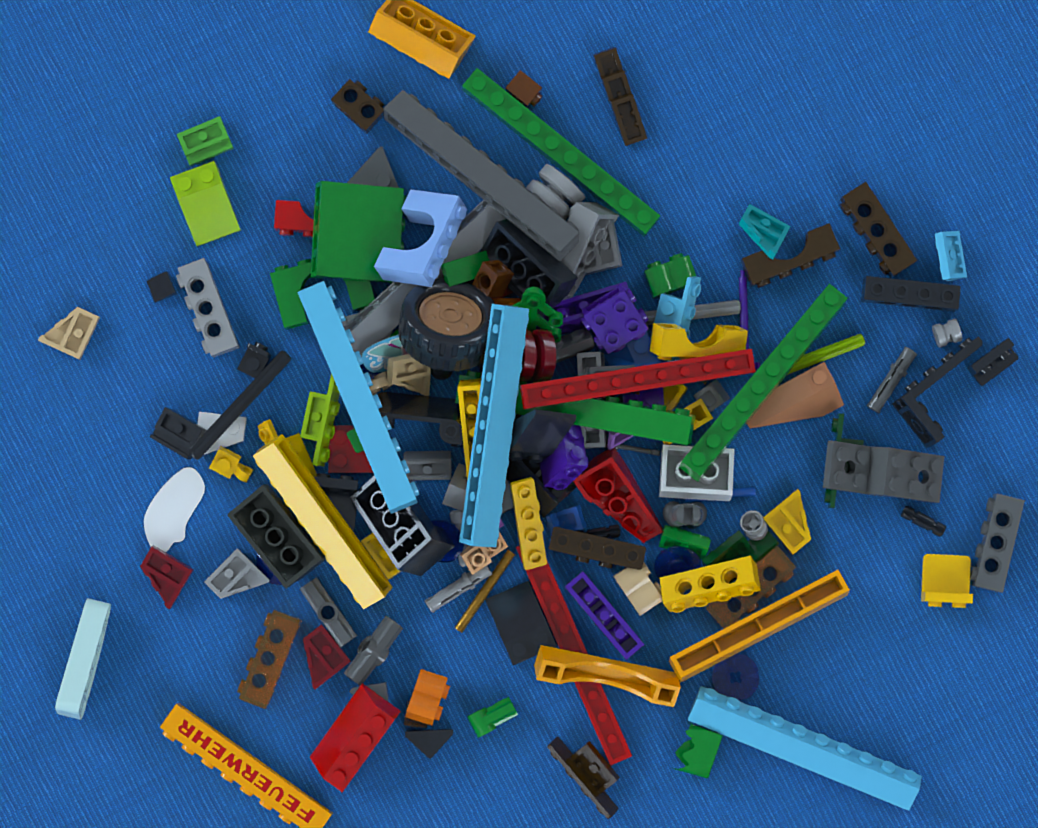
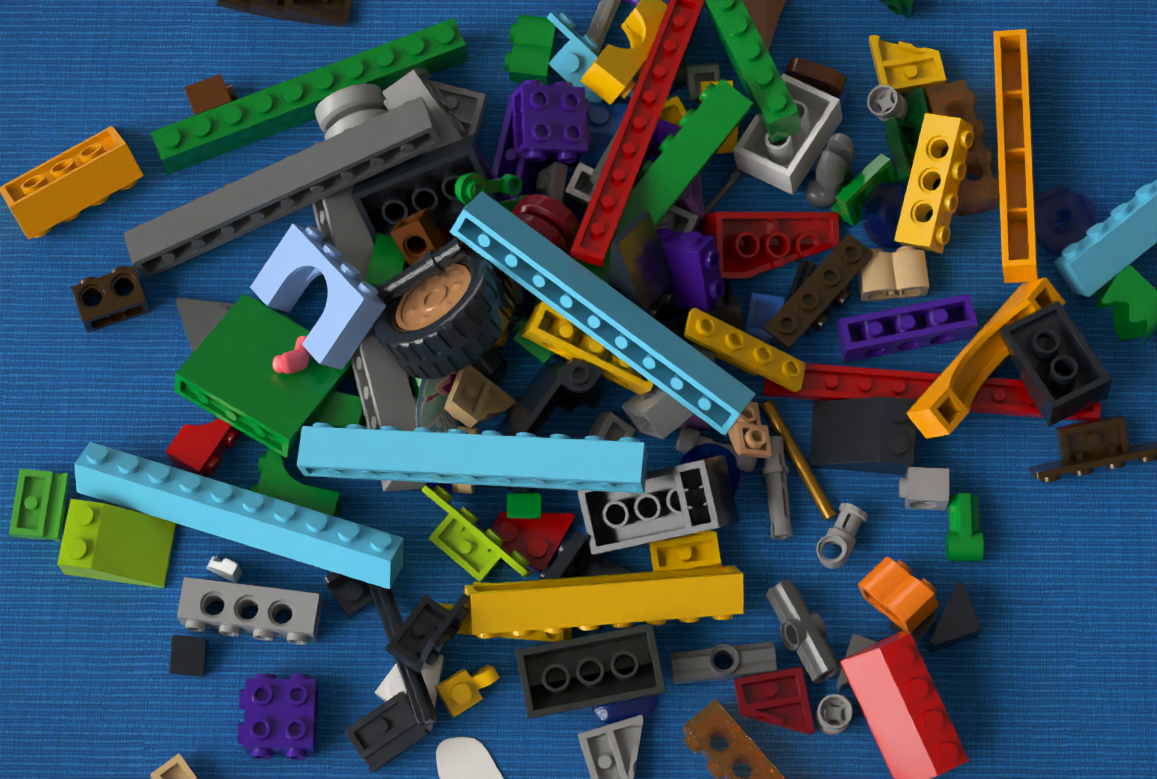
camera: 60 degrees left, 15 degrees down
(153, 363) = (279, 716): none -> dark purple brick
(226, 276) = (225, 568): none -> white tile
(244, 424) = (426, 632): none -> black bracket
(258, 269) = (239, 515): none -> medium azure brick
(328, 695) = (833, 708): none -> light grey wheel
(370, 247) = (293, 360): none -> coral arm
(448, 643) = (842, 534): none -> light grey connector
(470, 302) = (433, 264): none -> black pin
(505, 679) = (925, 488): none -> light grey brick
(626, 720) = (1055, 363): none -> black slope
(750, 468) = (816, 75): none -> reddish brown beam

